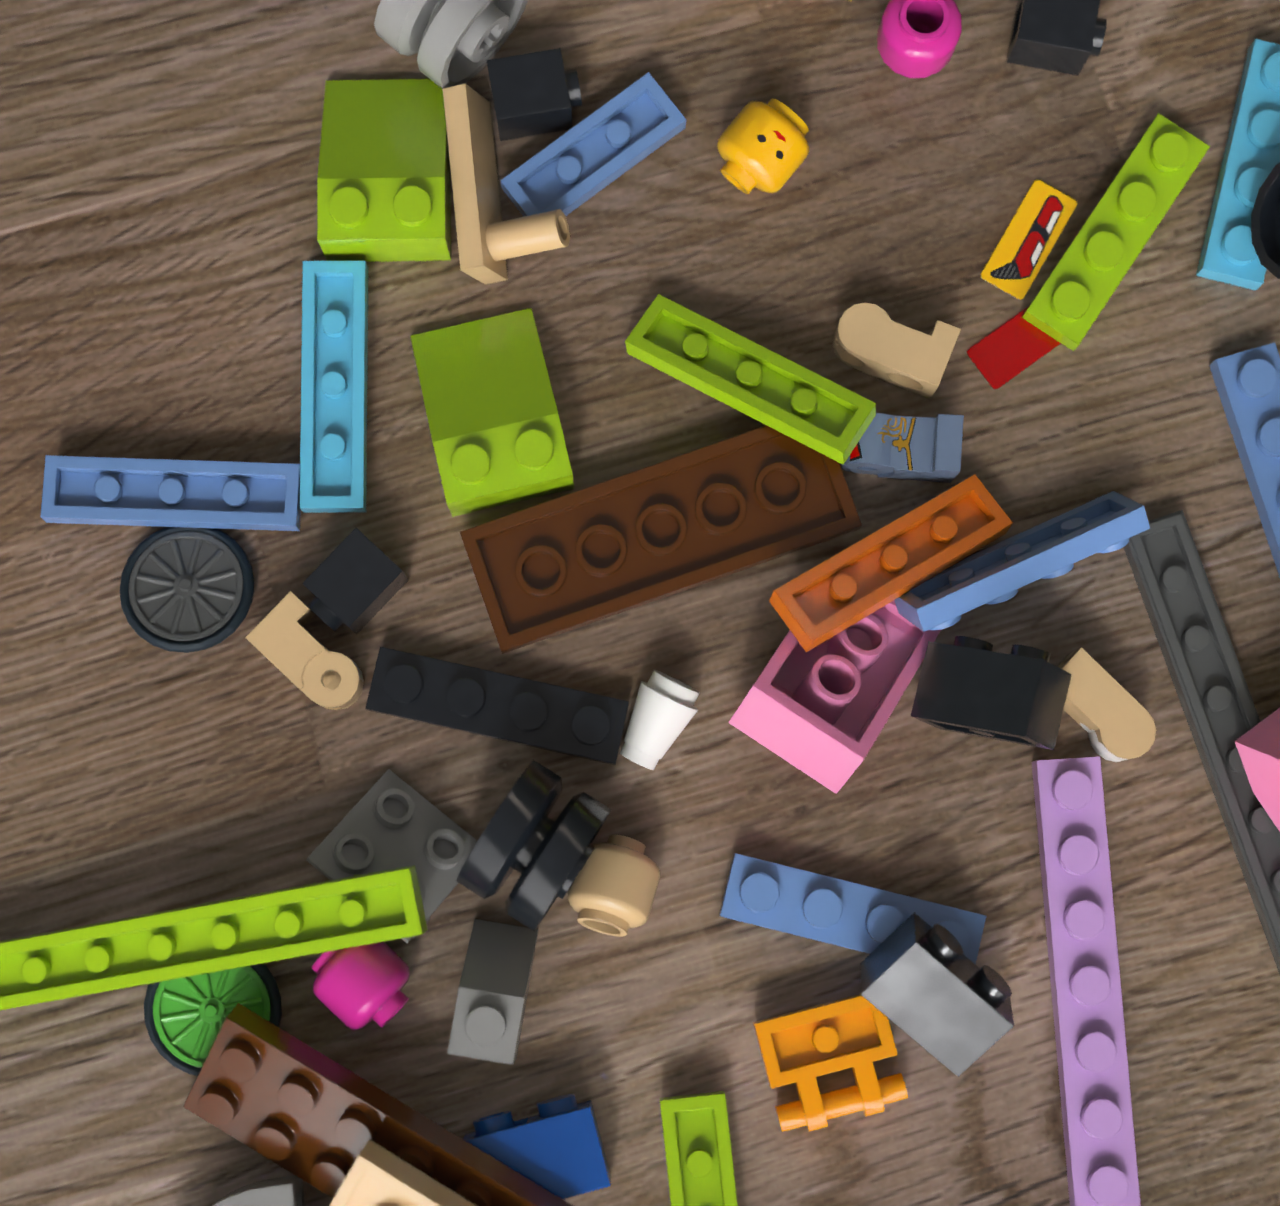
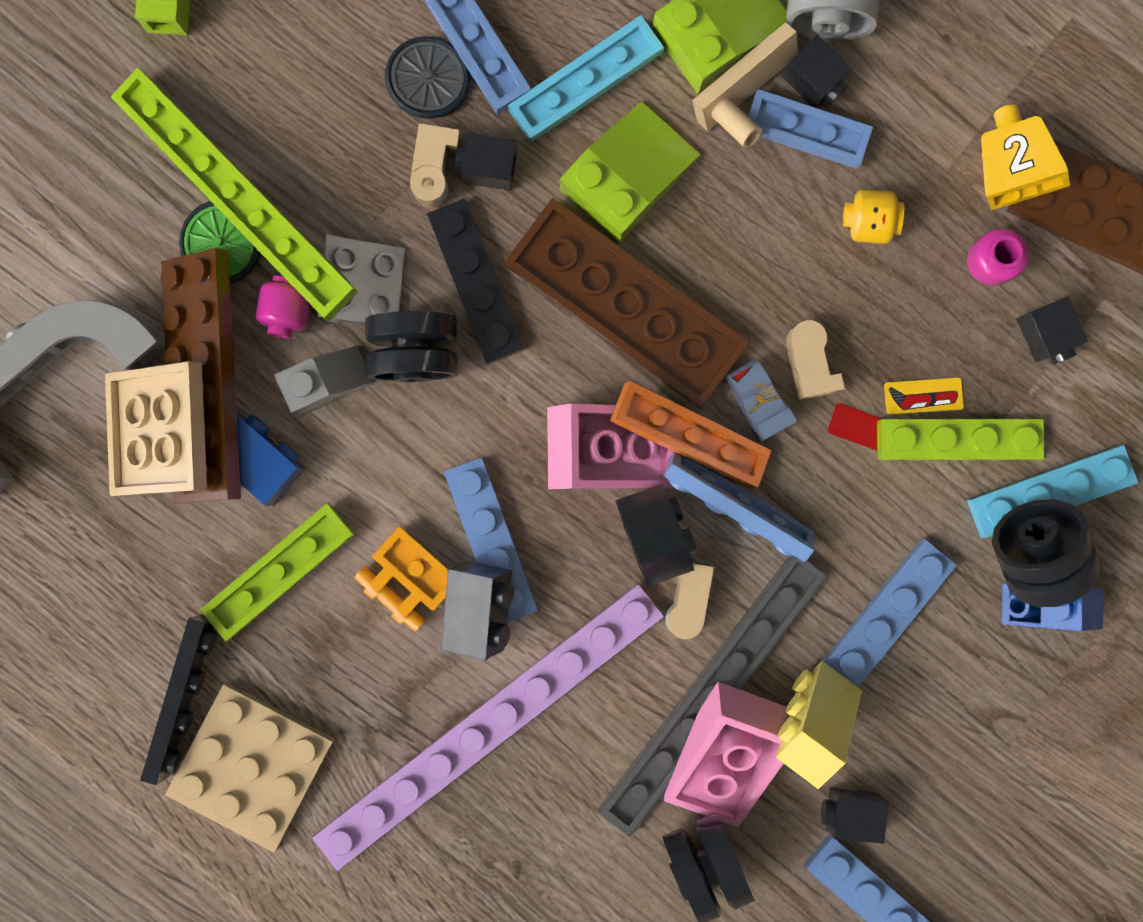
camera: 55 degrees right, 5 degrees up
(615, 887) = (421, 405): tan head -> none
(658, 718) = (525, 369): white cone -> none
(751, 378) = (740, 295): lime plate -> none

